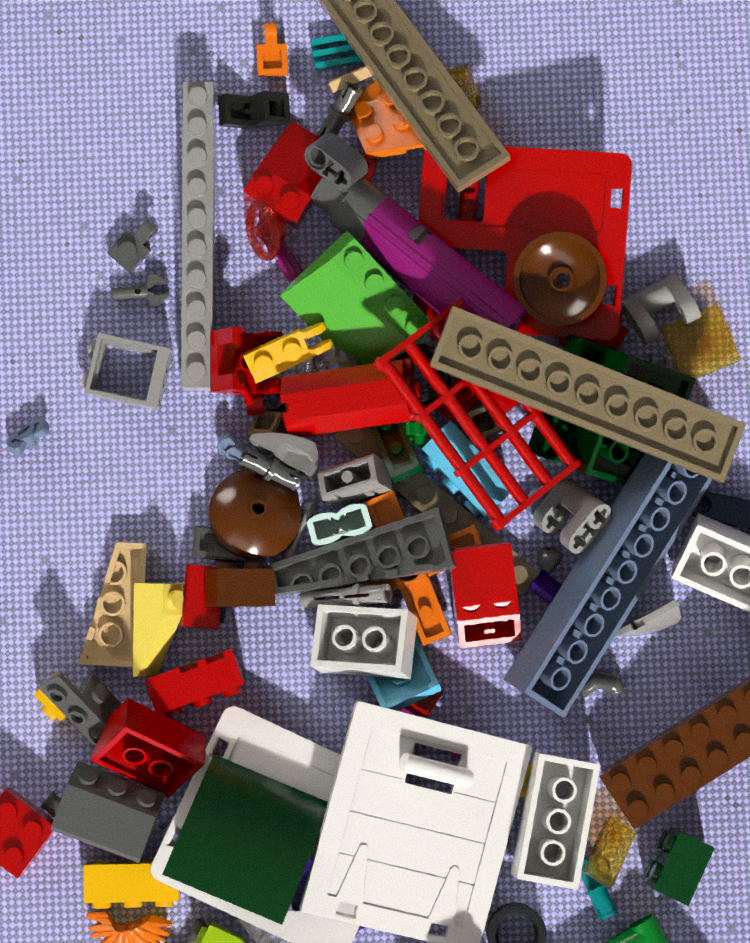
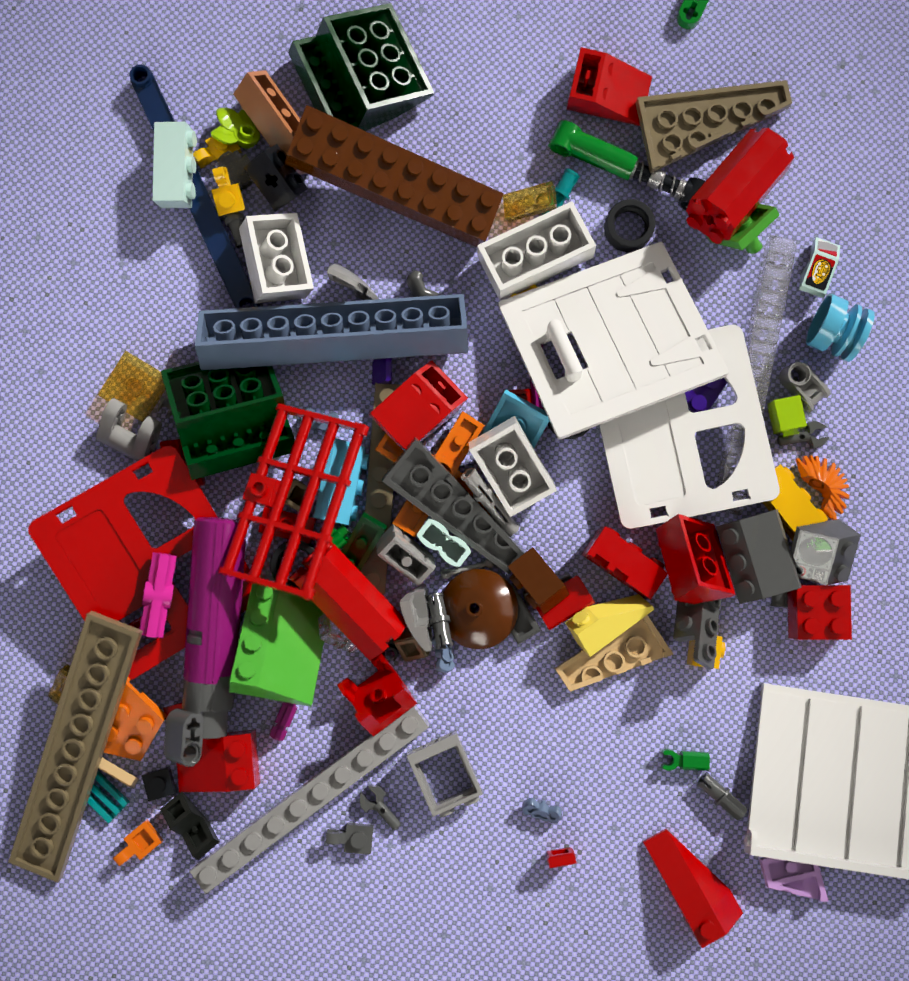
camera: 125 degrees left, 0 degrees up
(66, 877) = (824, 551): none -> slope
(246, 839) = (709, 444): dark green slope -> none
(253, 404) = (403, 665): red hand -> none
(269, 229) = (269, 749): clear red piece -> none
(285, 352) = (349, 671): yellow hinge -> none
(312, 108) = (159, 783): none -> black plate
(340, 110) = (144, 762): dark grey pin -> none
(483, 228) = (158, 595): none -> dark pink piece
(538, 272) = (149, 533): reddish brown dish -> none
(549, 559) = (361, 384): dark grey hinge -> none
(576, 501) = (307, 376): light grey connector -> none
(587, 394) = (225, 433): dark tan plate -> none
(678, 865) = (505, 147): dark green brick -> none

